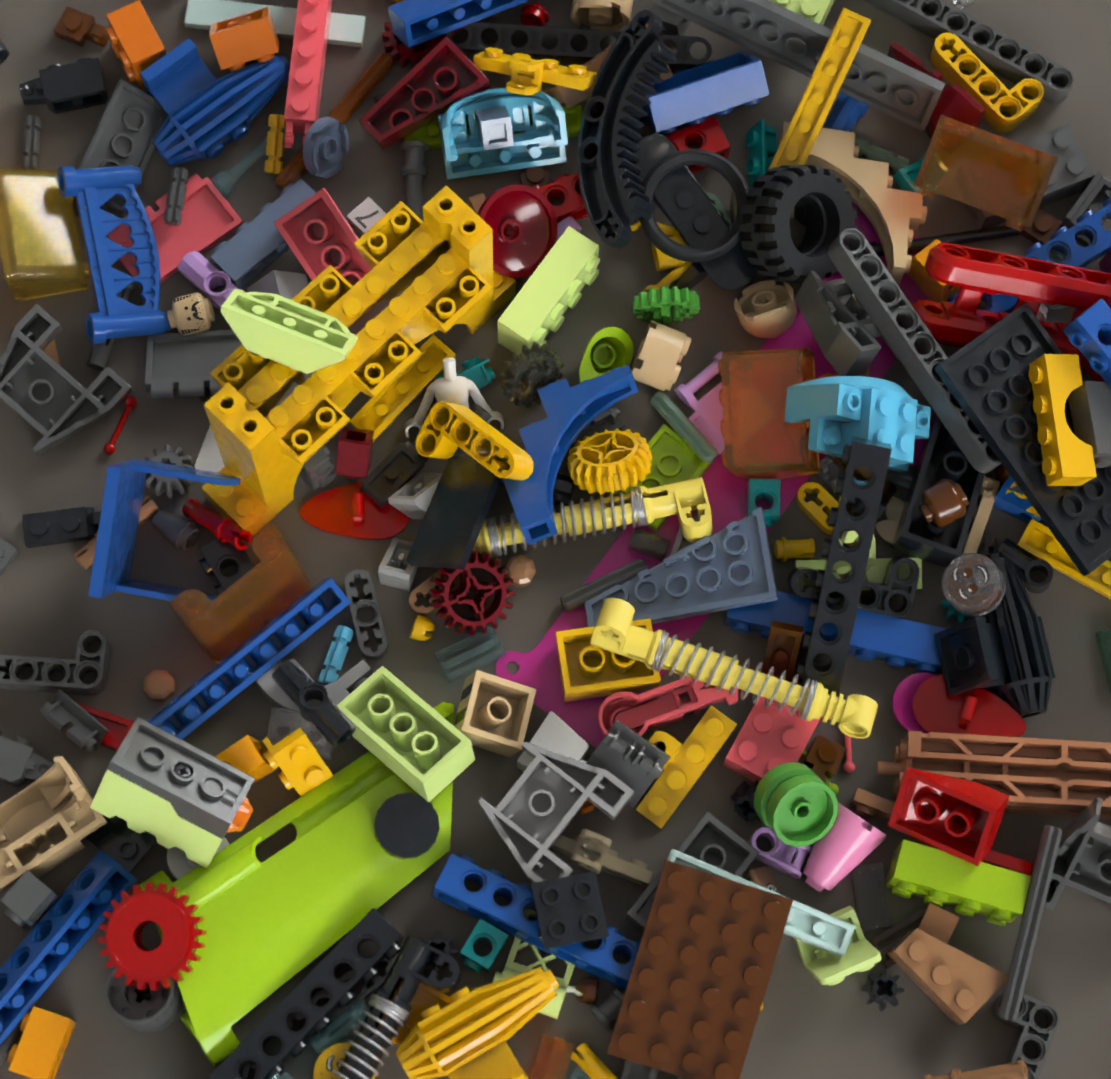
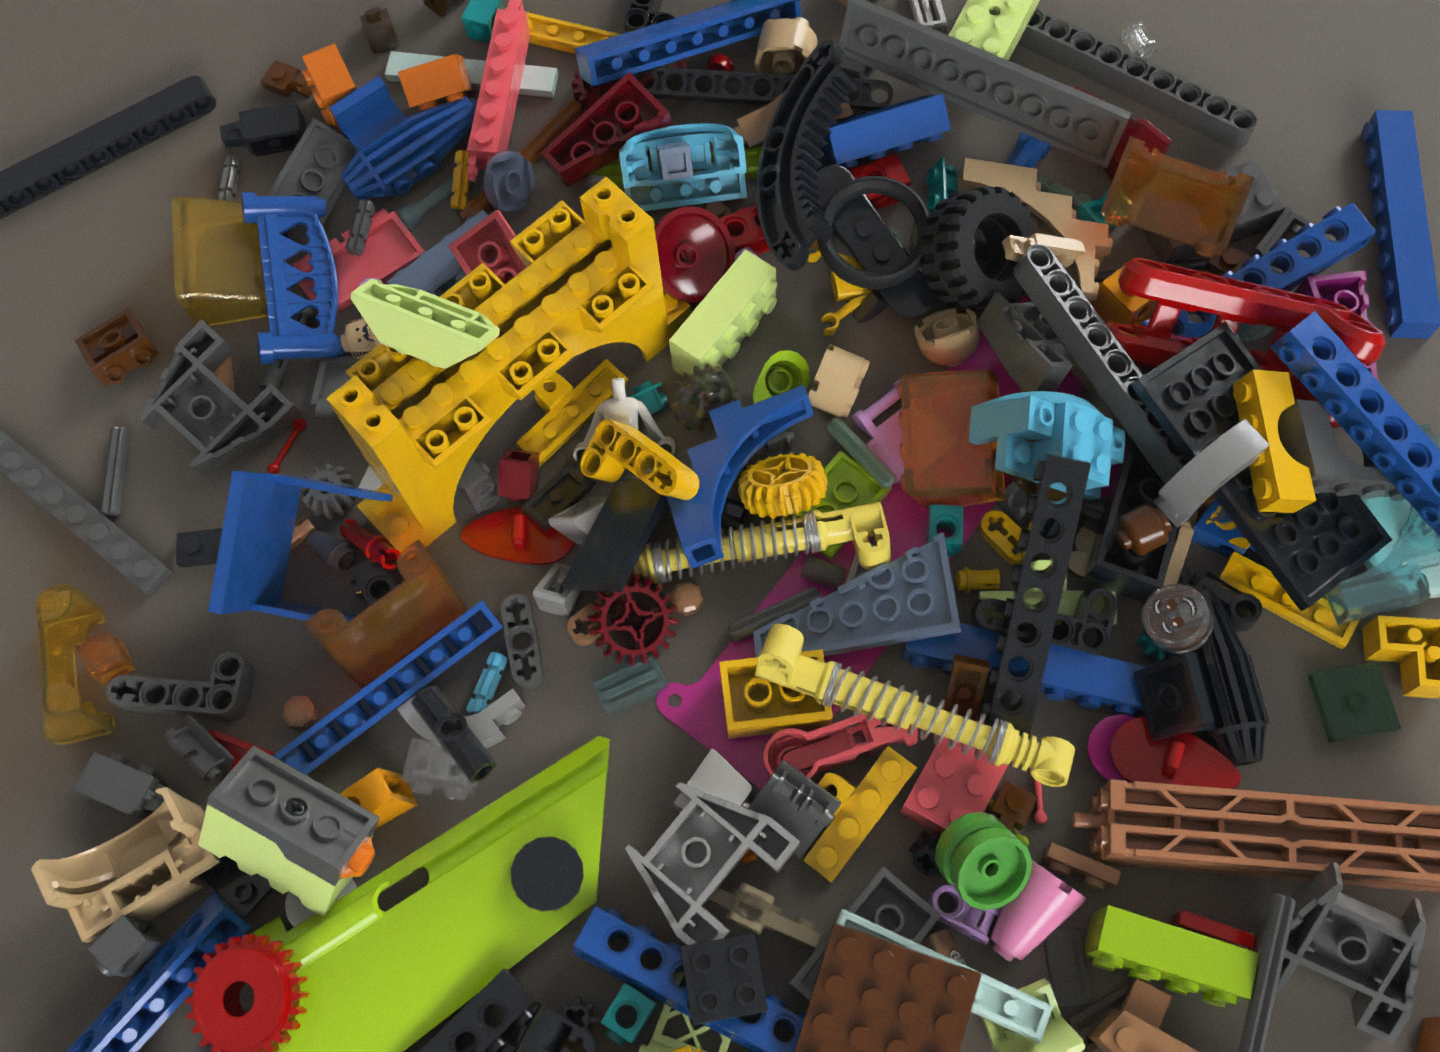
camera: 10 degrees right, 5 degrees down
(298, 761) = (434, 798): yellow bracket -> none
(407, 733) = (553, 771): yellowish green brick -> none
(421, 628) = (579, 657): yellow hinge -> none
(494, 712) = (649, 750): tan brick -> none
(529, 73) = (710, 107): yellow plate -> none
(666, 304) = (844, 329): bright green gear -> none
(822, 89) = (1007, 115): yellow tile -> none
(871, 226) = (1063, 248): none -> tan hinge
(949, 813) = (1160, 876): red slope -> none
(952, 55) = (1188, 145): yellow beam -> none
(1003, 450) = (1210, 471): none -> light grey arch

